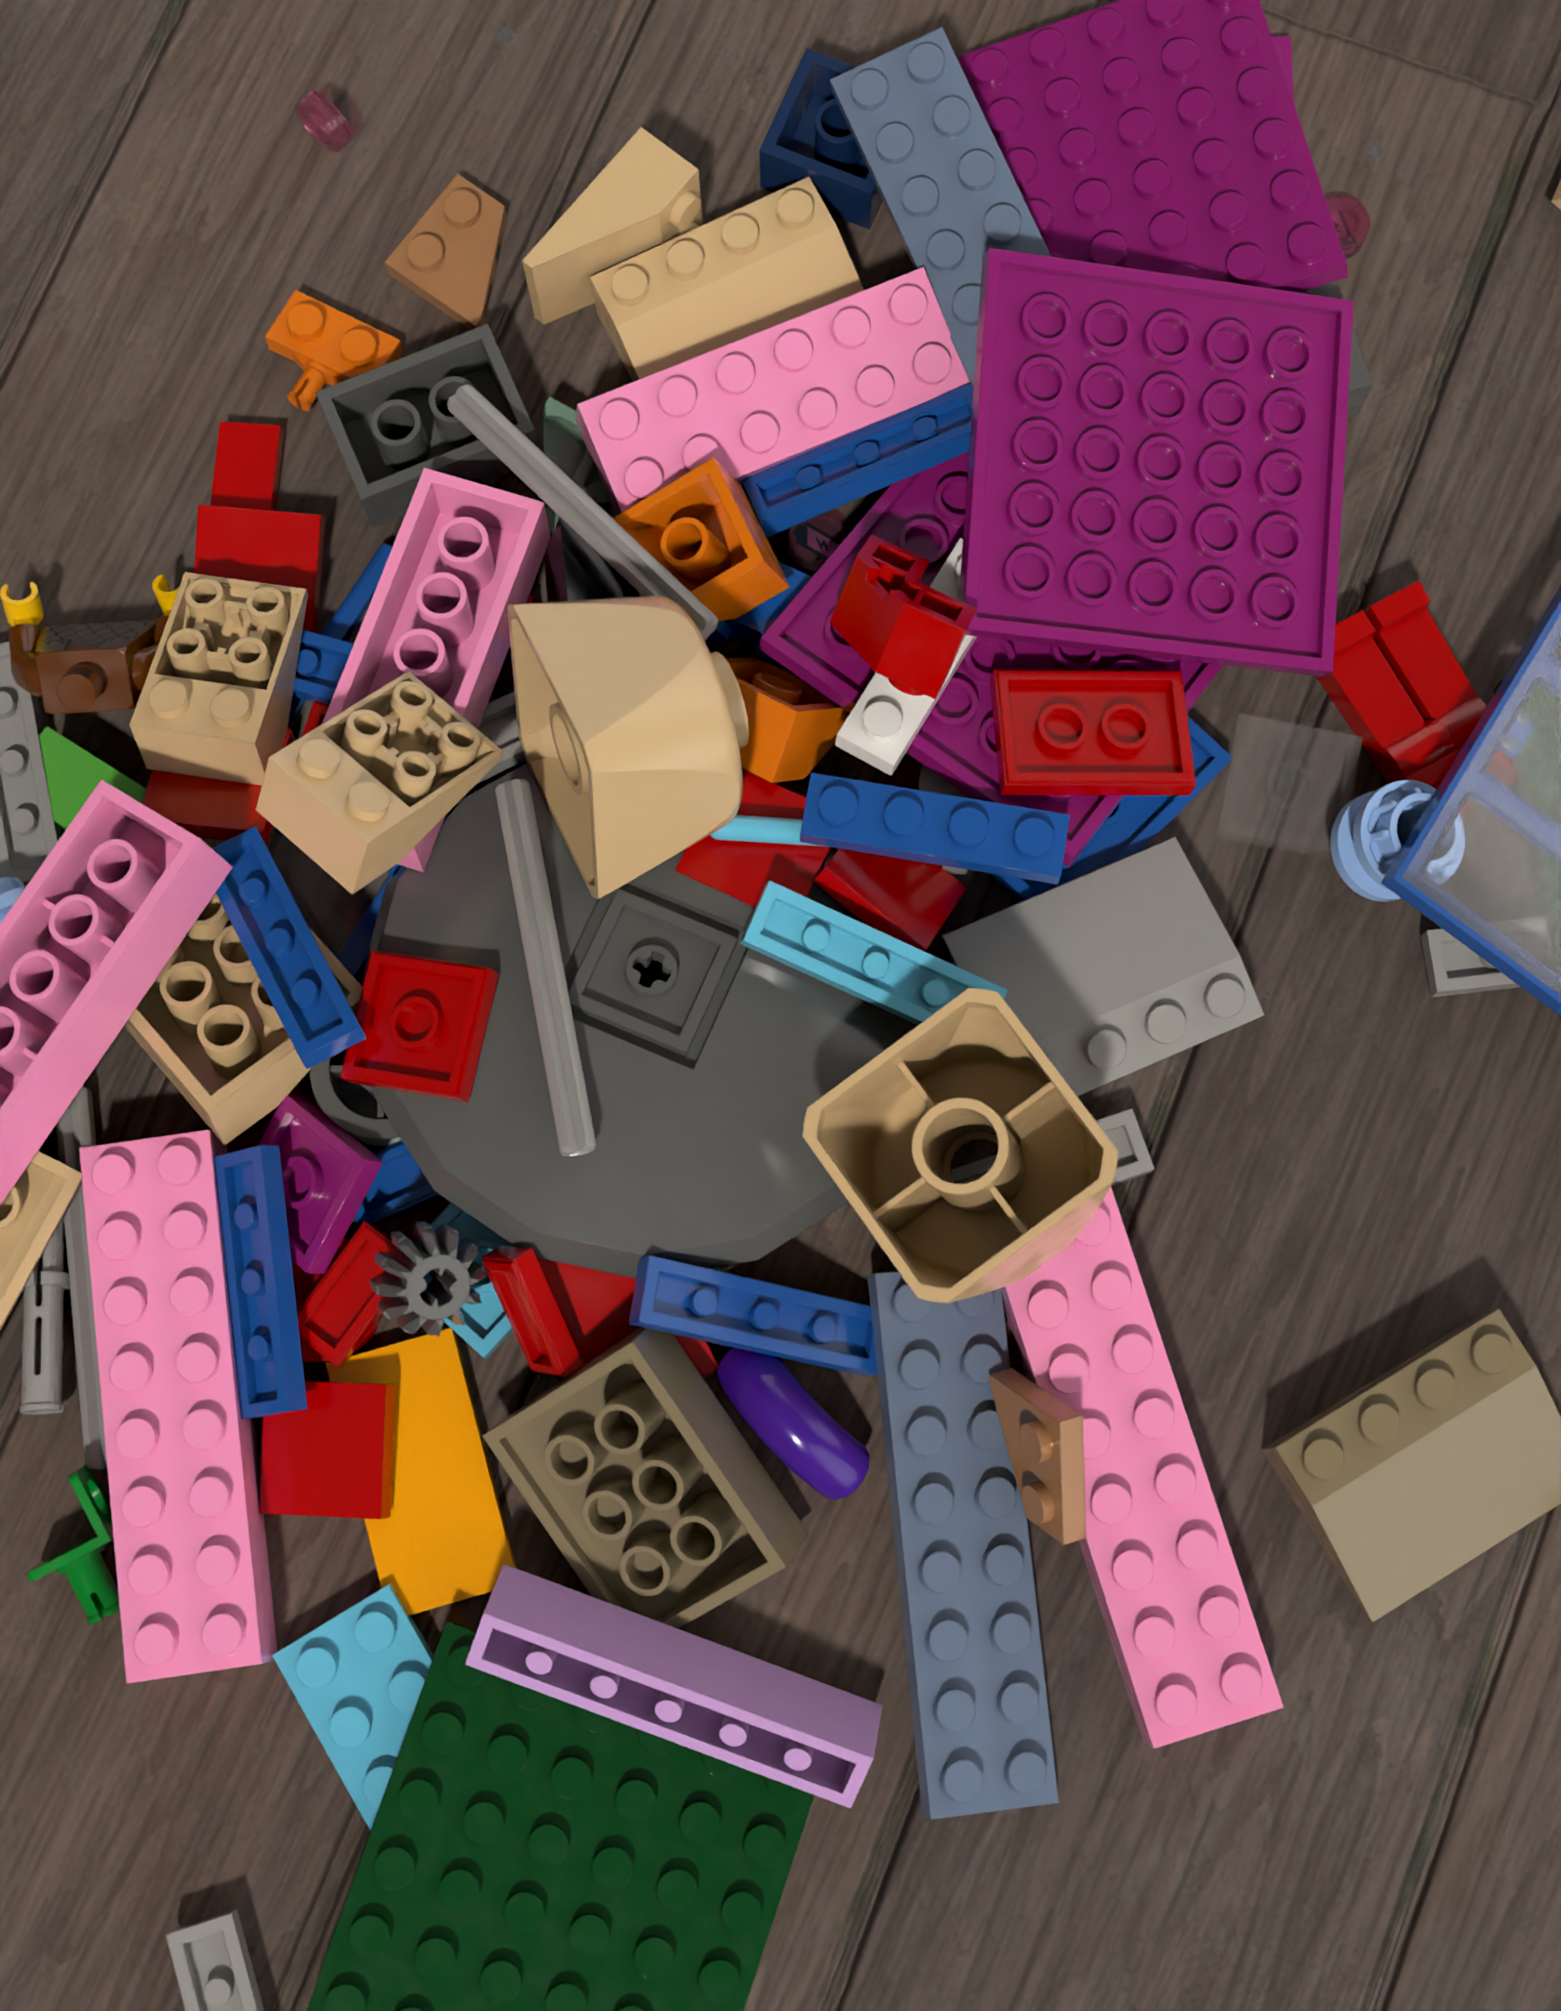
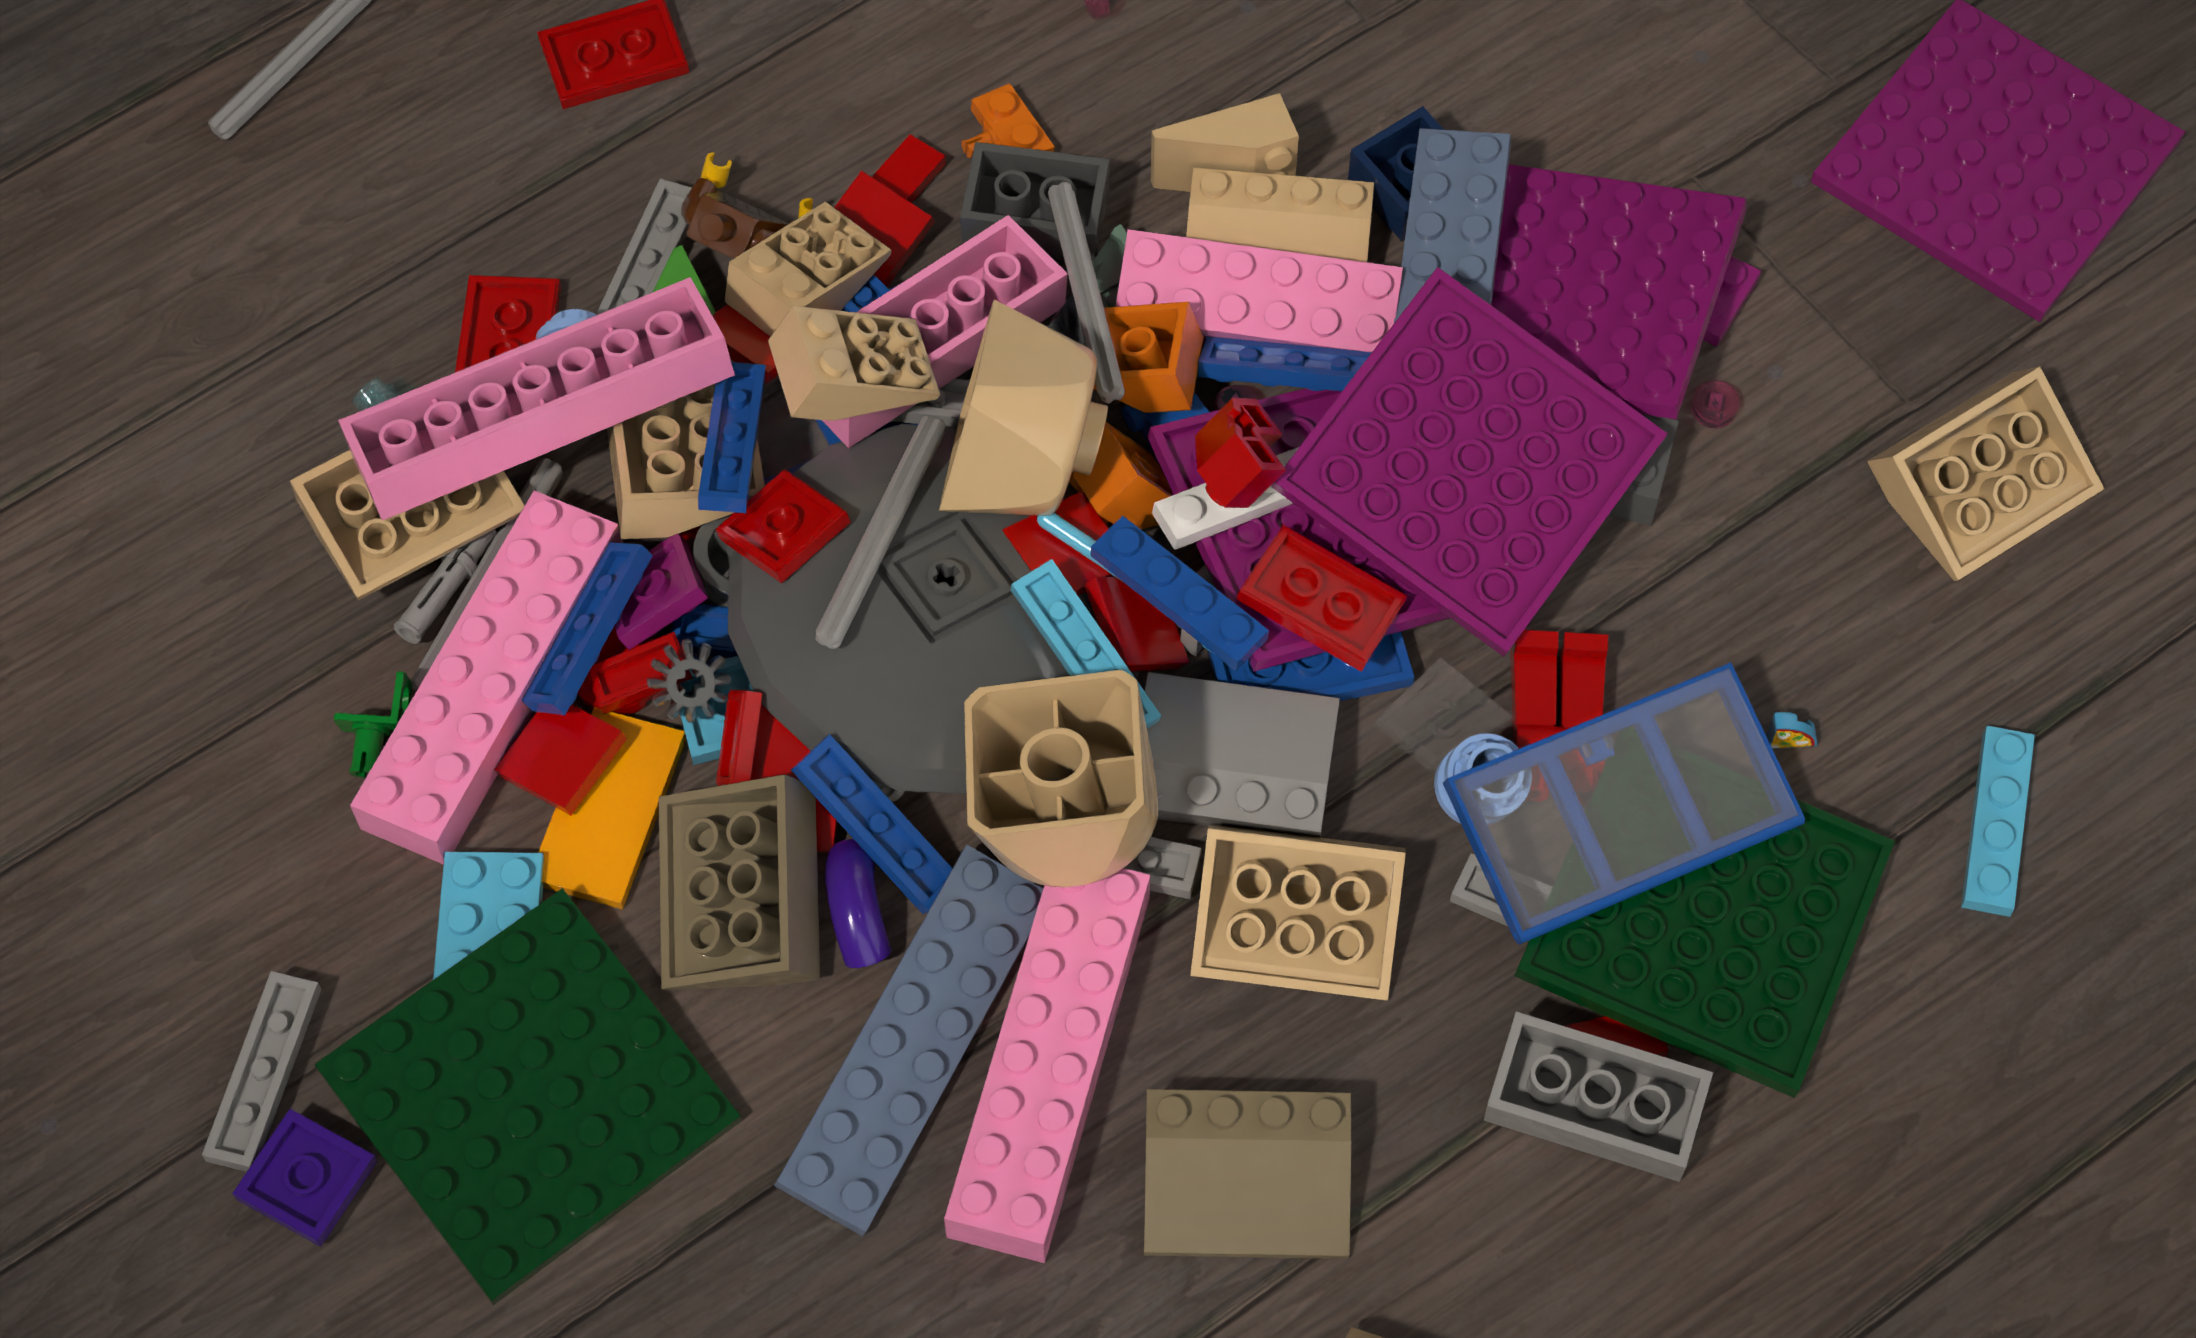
camera: 30 degrees right, 15 degrees down
(453, 252) = (1125, 114): medium nougat wing -> none
(676, 1686) = (675, 1007): lavender brick -> none
(1045, 1454) = (995, 1008): medium nougat wing -> none
(1285, 1114) = (1298, 912): none -> tan slope

